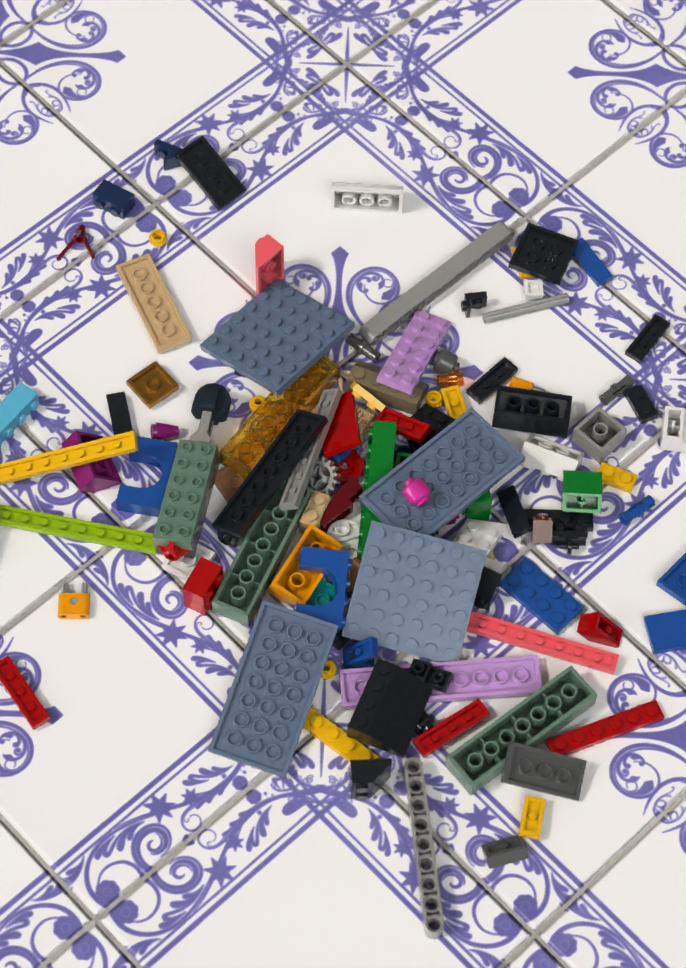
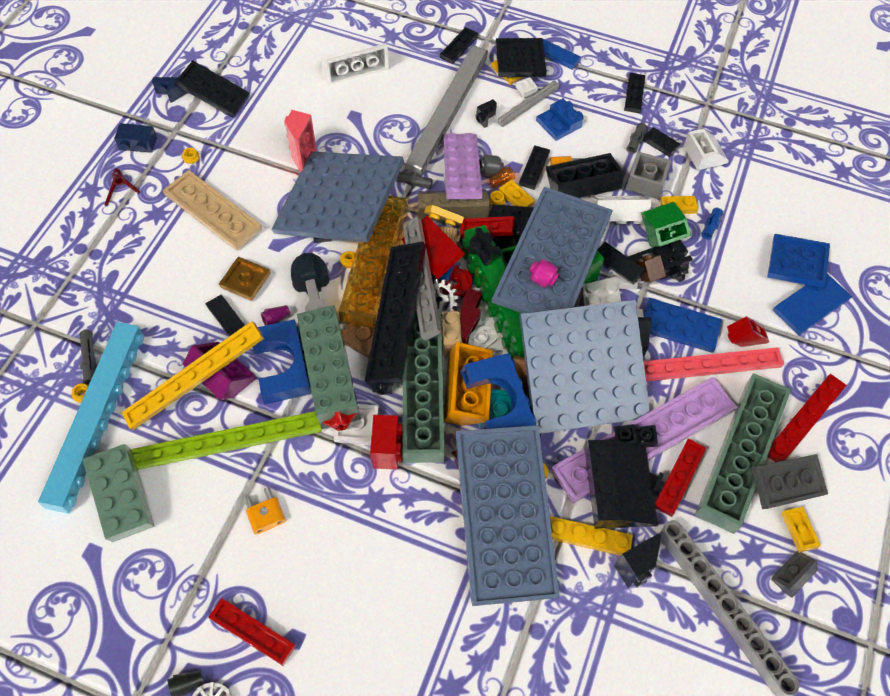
camera: 25 degrees left, 0 degrees up
(361, 654) = (562, 442): blue slope -> none
(376, 444) = (481, 245): none -> black hips
(490, 213) = (459, 45): none -> black tile
(548, 339) = (560, 119): none -> blue plate

